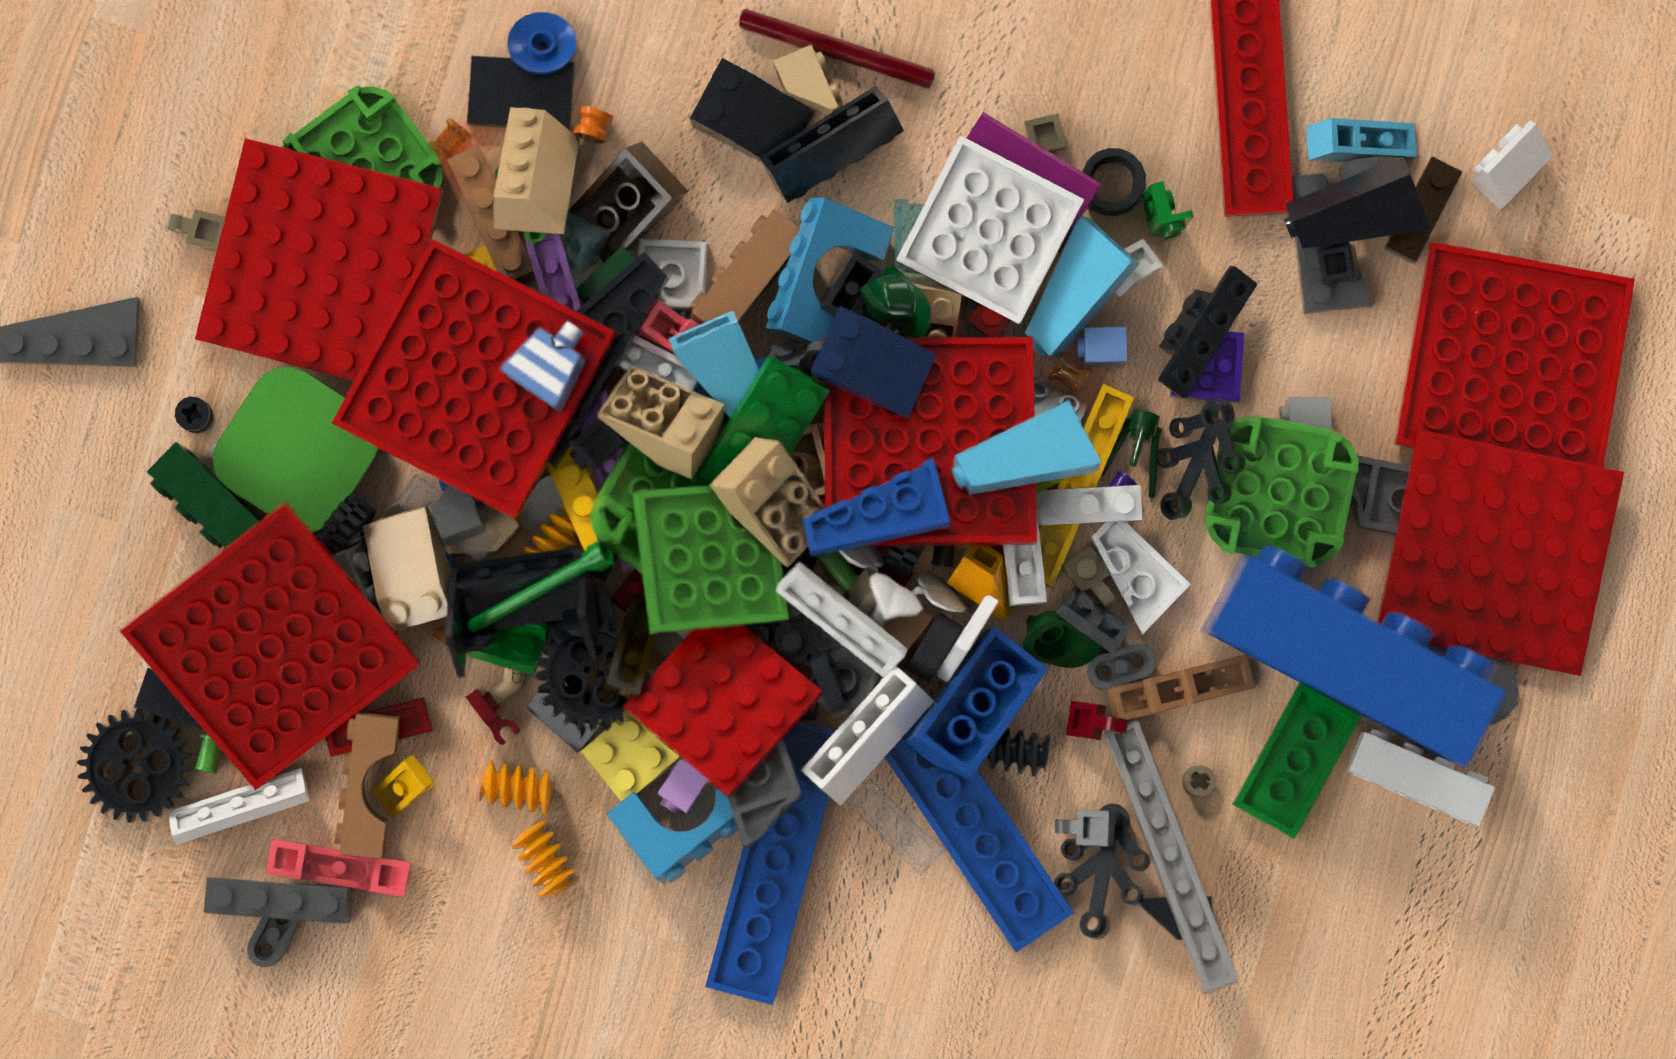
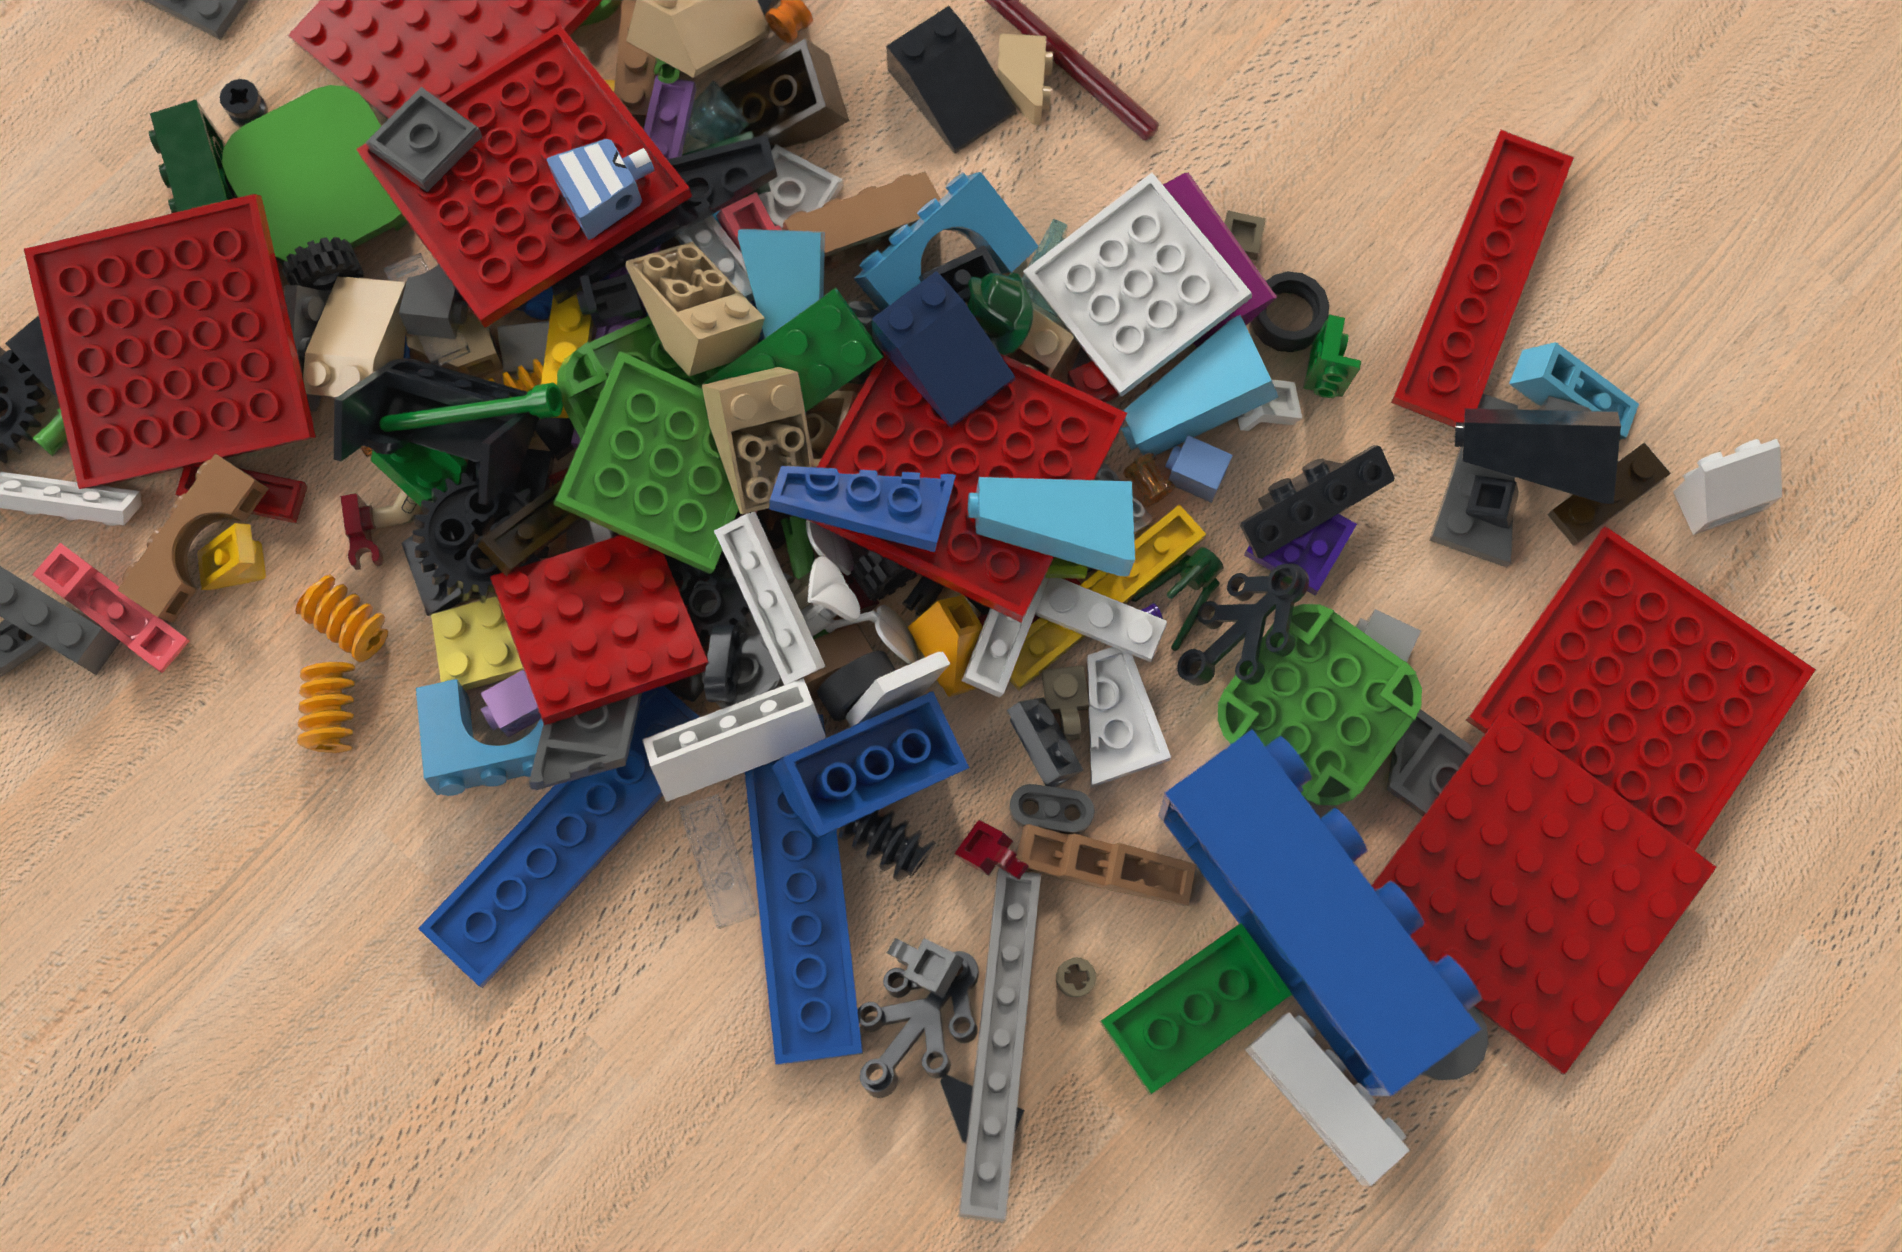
camera: 25 degrees right, 10 degrees down
(383, 390) = (424, 139): none -> dark grey tile
(831, 144) = (1018, 141): black brick -> none
(1057, 641) = (996, 748): dark green piece -> none

